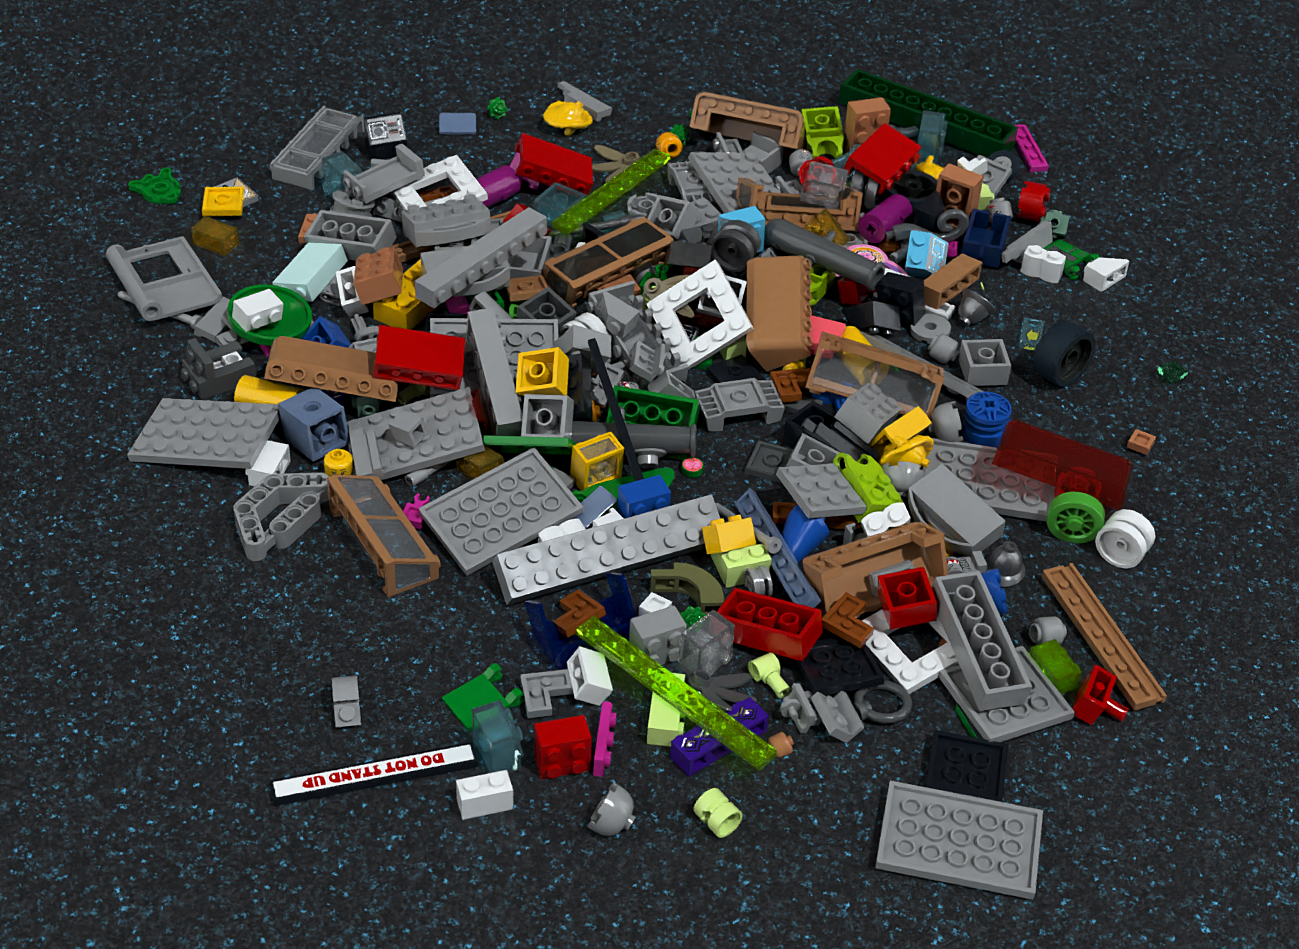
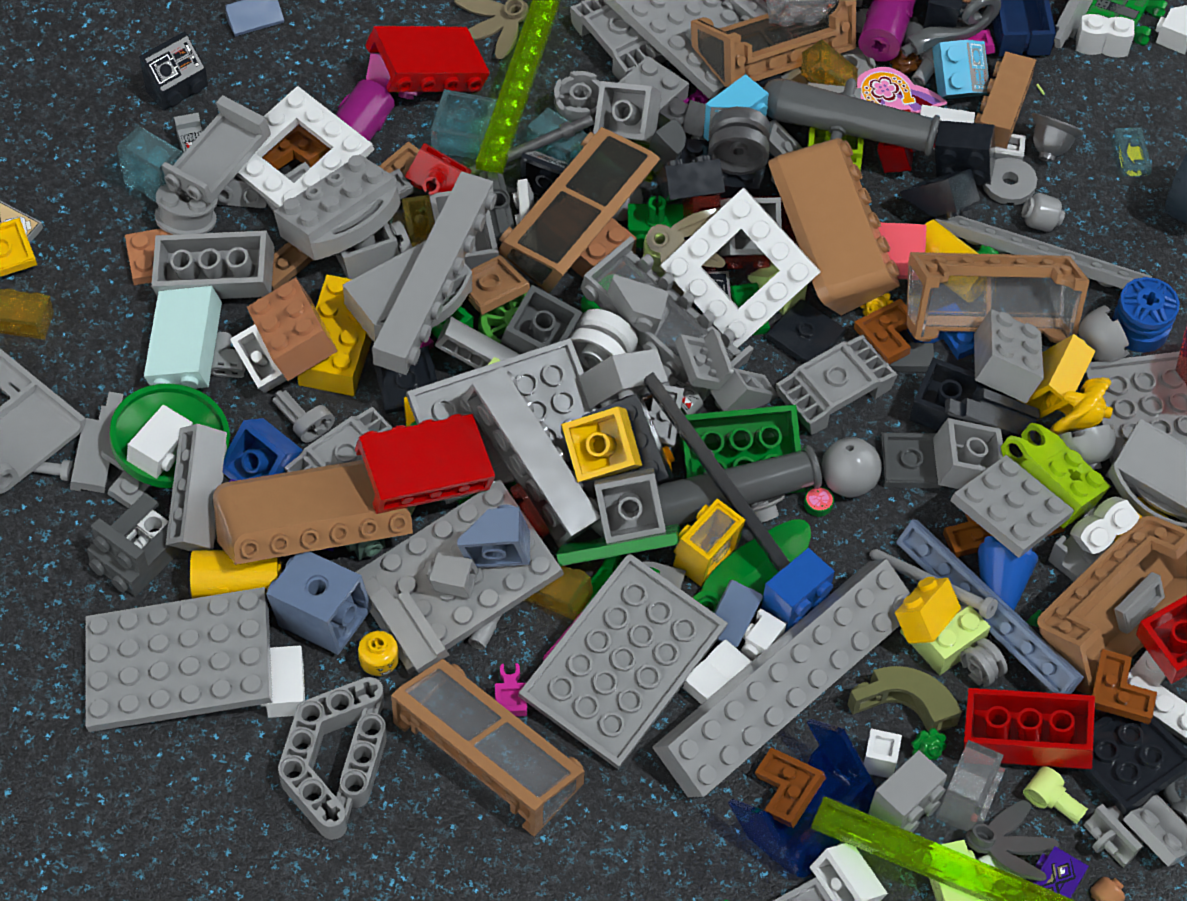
camera: 20 degrees left, 15 degrees up
(277, 322) = (195, 480): none -> light grey brick
(319, 138) = (81, 114): light grey window -> none
(444, 409) = (497, 539): none -> sand blue slope
(722, 449) = (851, 467): none -> light grey piece
(984, 362) = (1104, 221): light grey brick -> none

